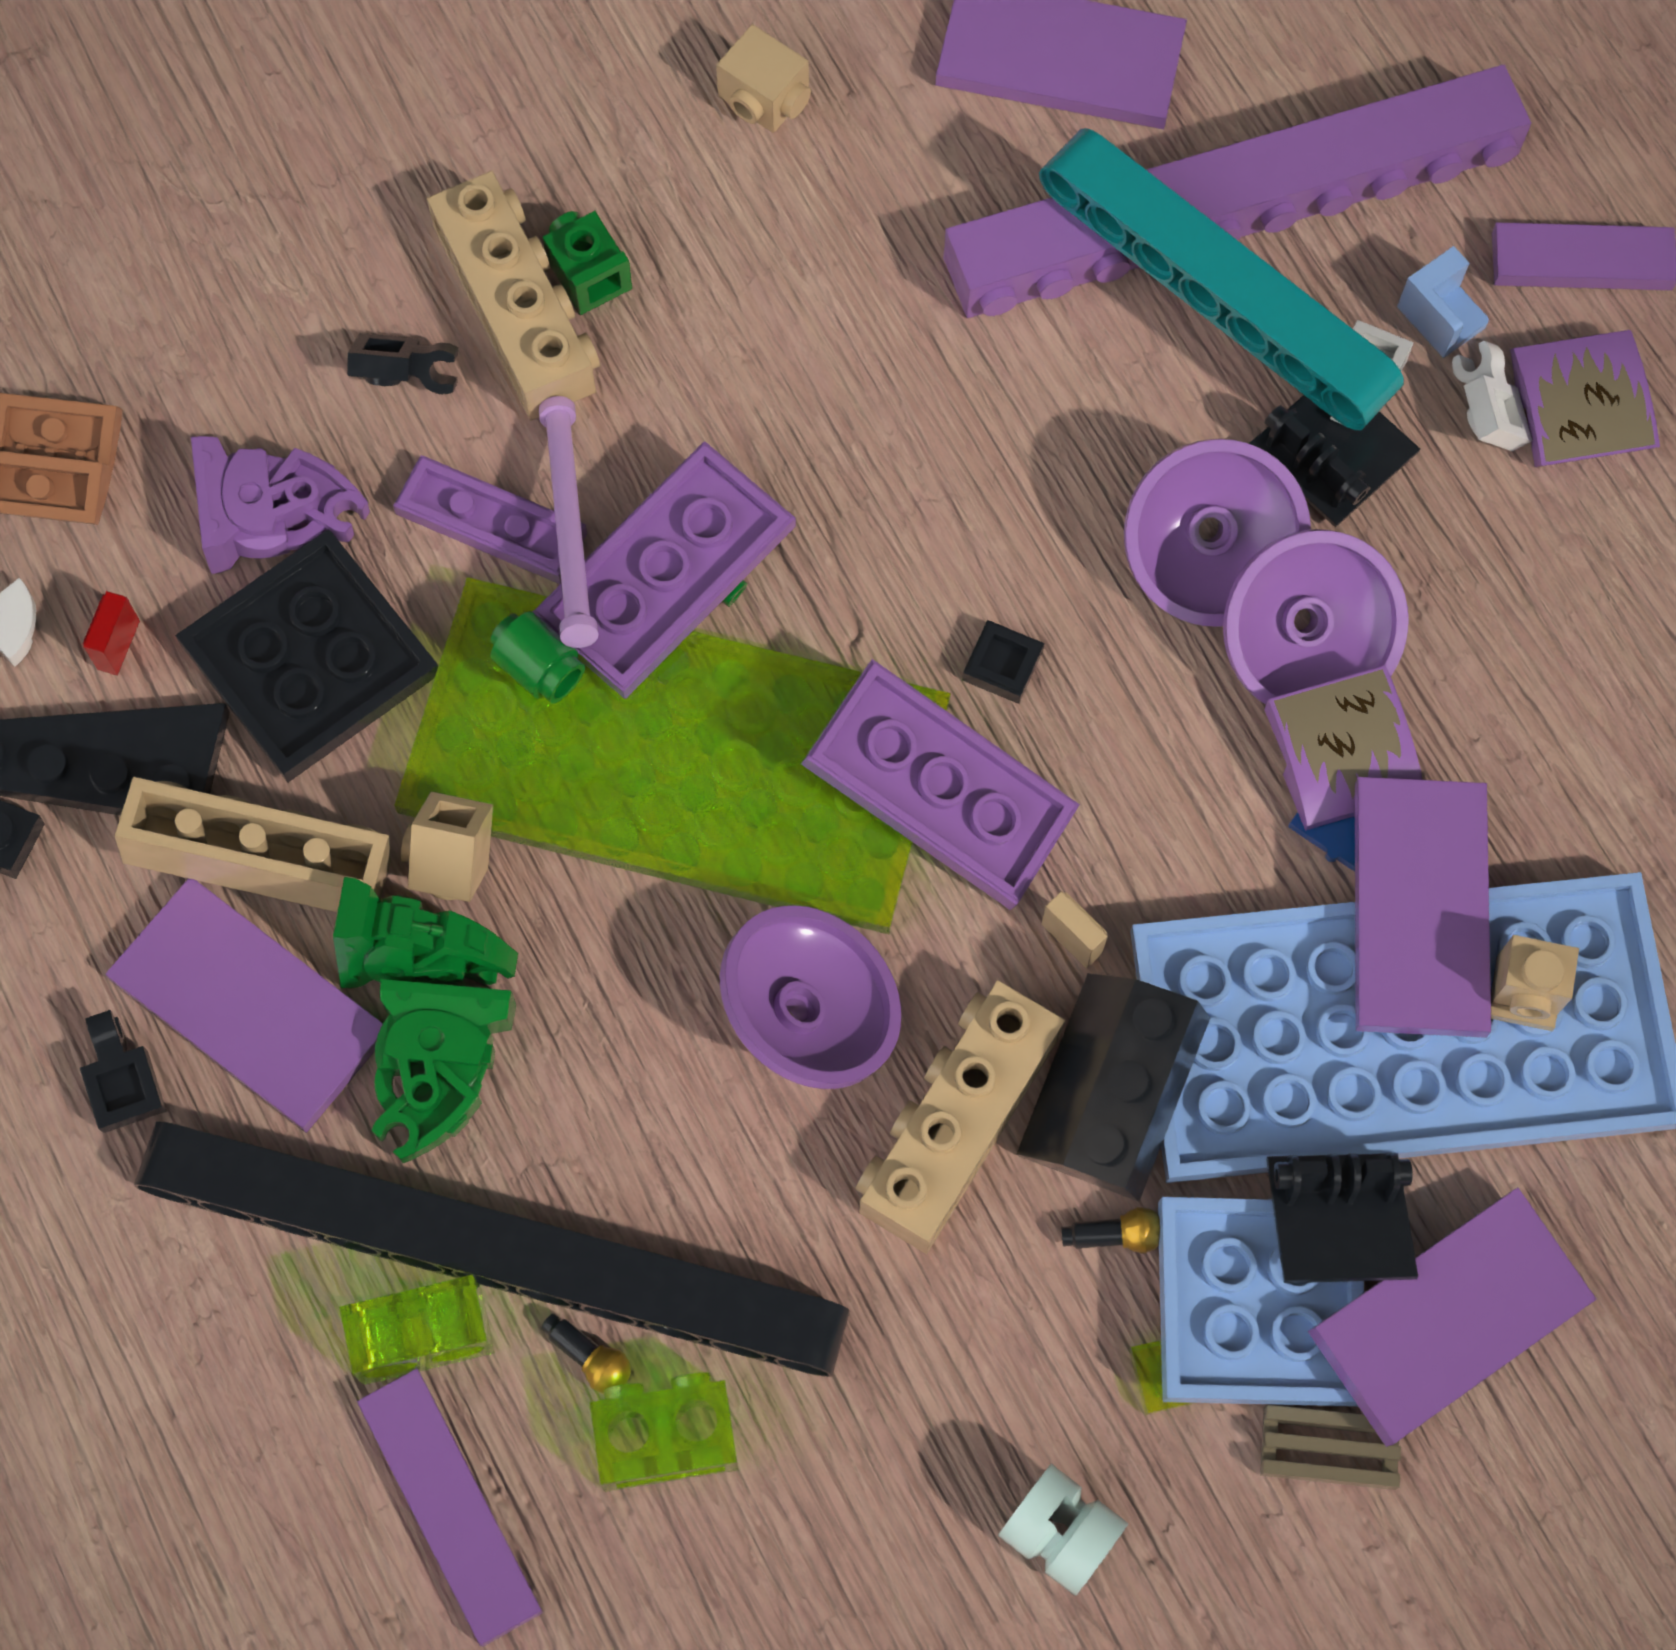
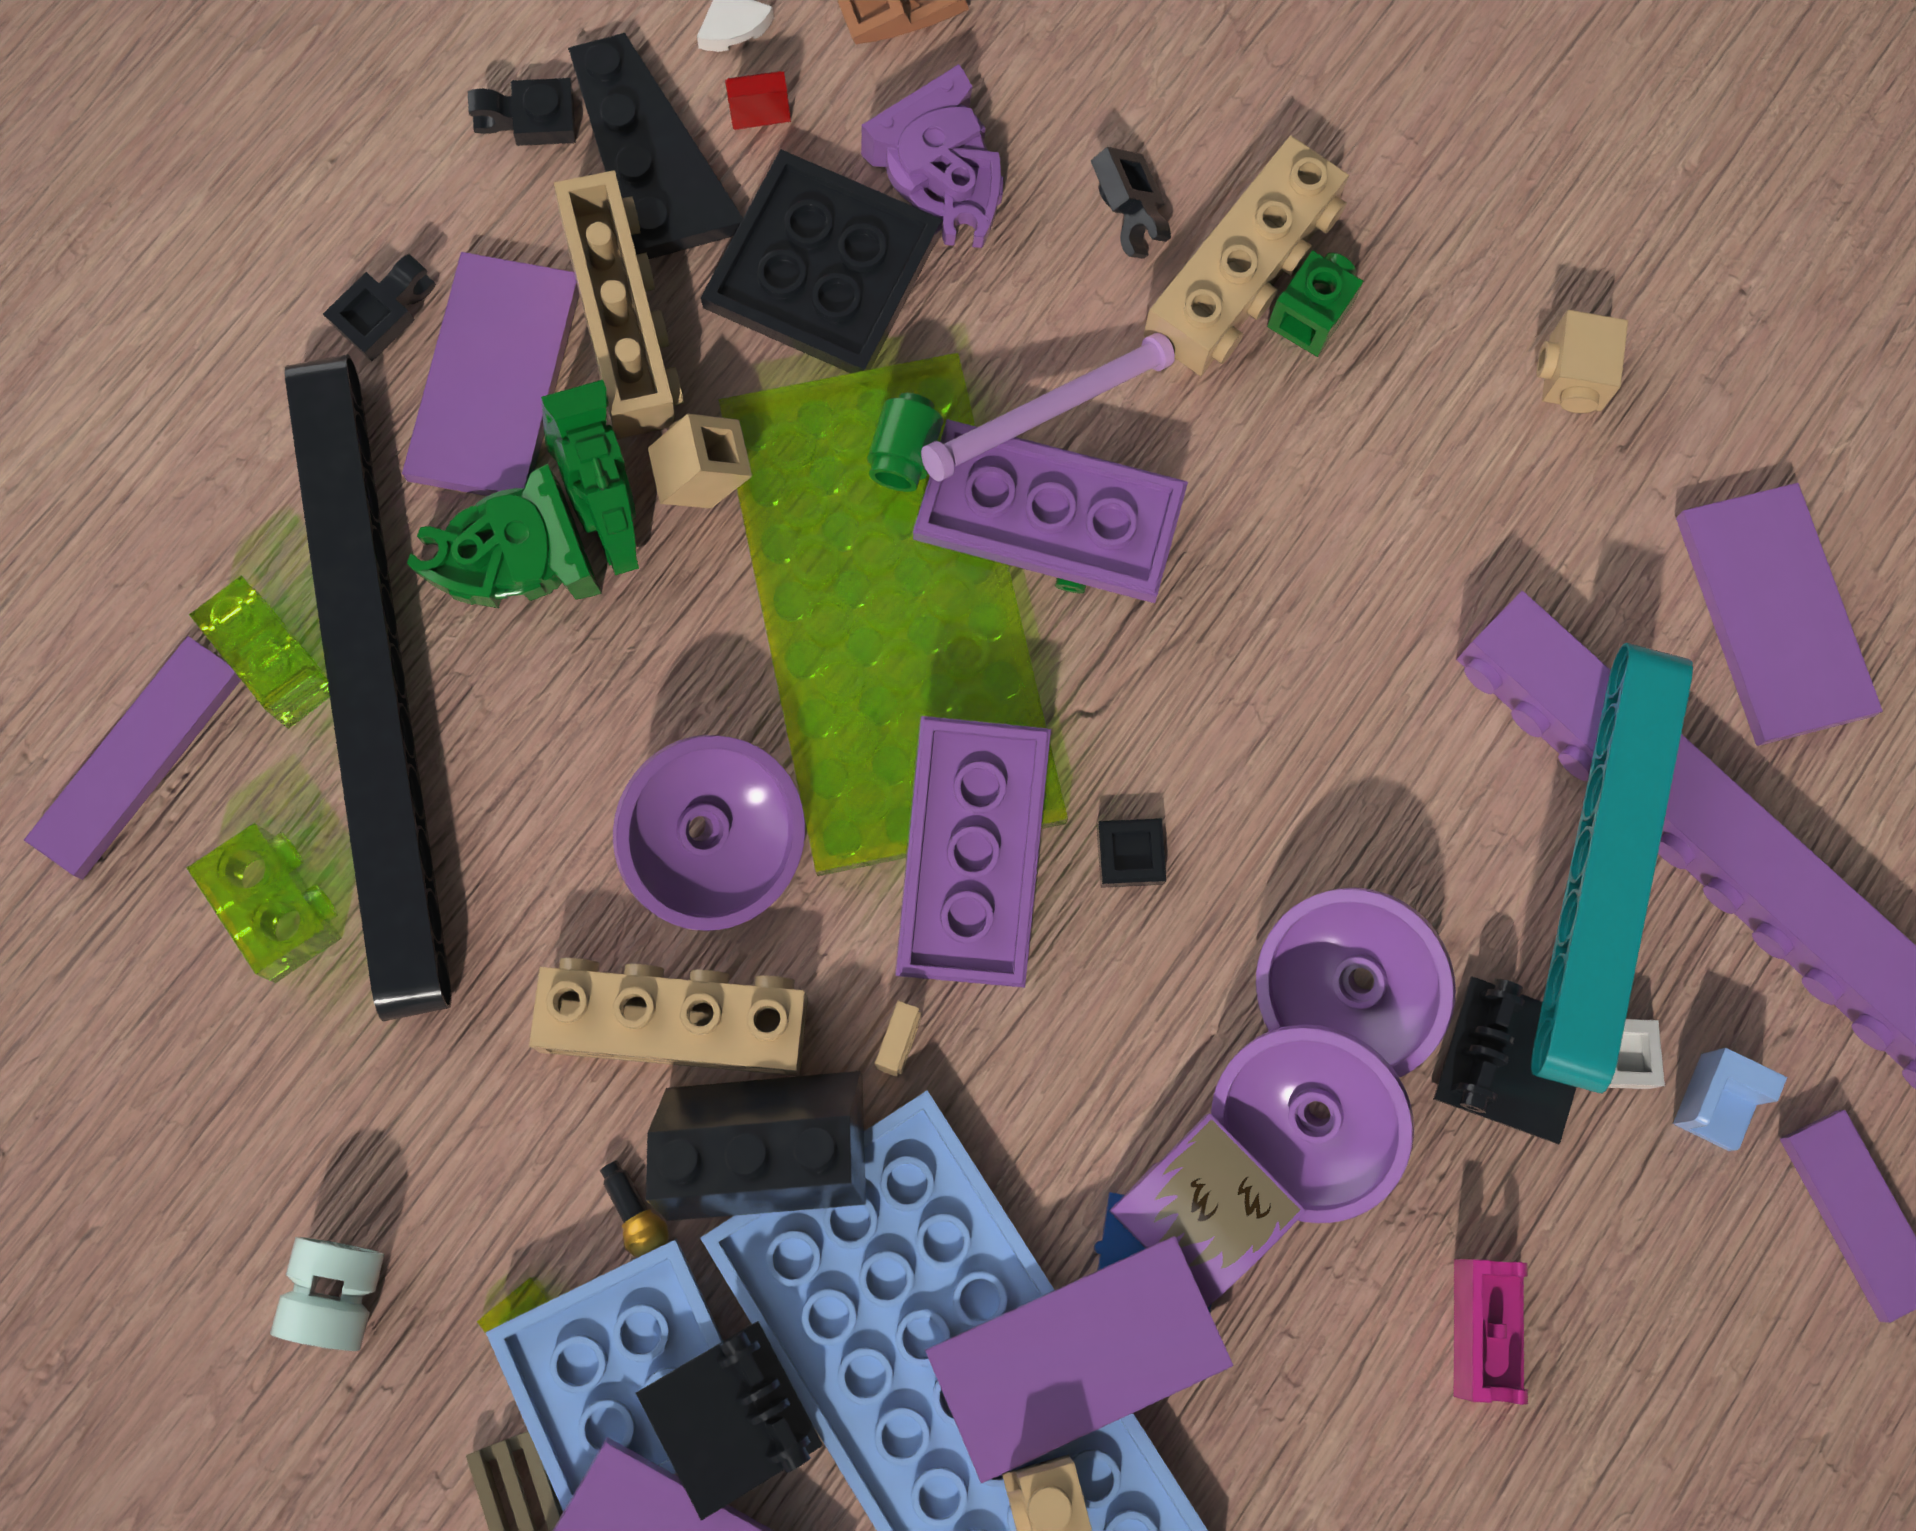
camera: 60 degrees right, 5 degrees up
(482, 517) = (1029, 337): medium lavender tile -> none
(601, 1365) = (309, 823): piece -> none
(1494, 405) = (1646, 1194): white plate -> none
(1544, 582) = (1489, 1331): none -> dark pink hinge
(1585, 398) = (1706, 1284): slope -> none

